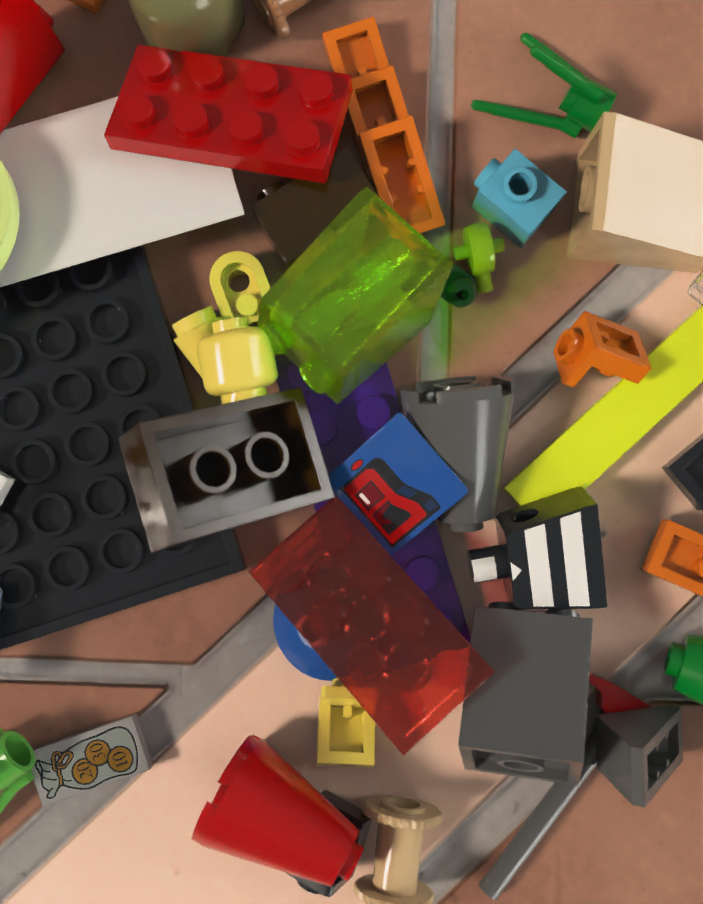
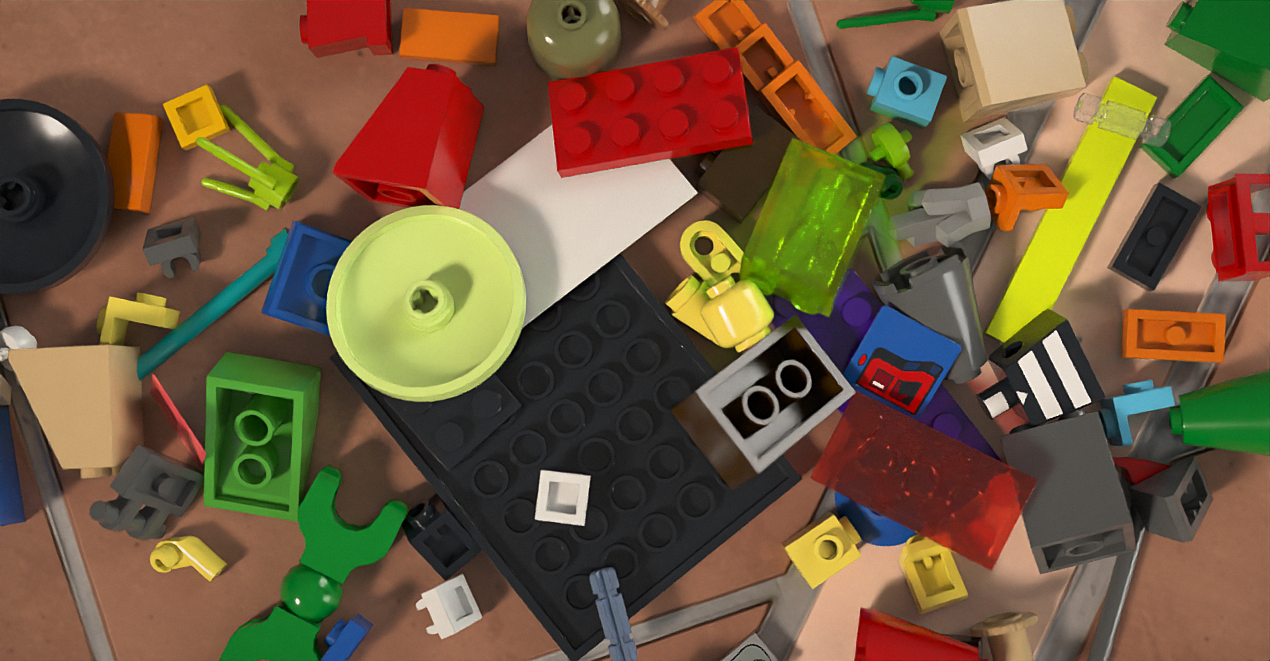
camera: 20 degrees left, 0 degrees up
(237, 654) = (823, 548): none -> light yellow brick
(504, 343) = (942, 215): none -> light grey rock
(590, 288) = (994, 143): none -> white tile
(641, 621) = (1137, 398): none -> medium azure bracket

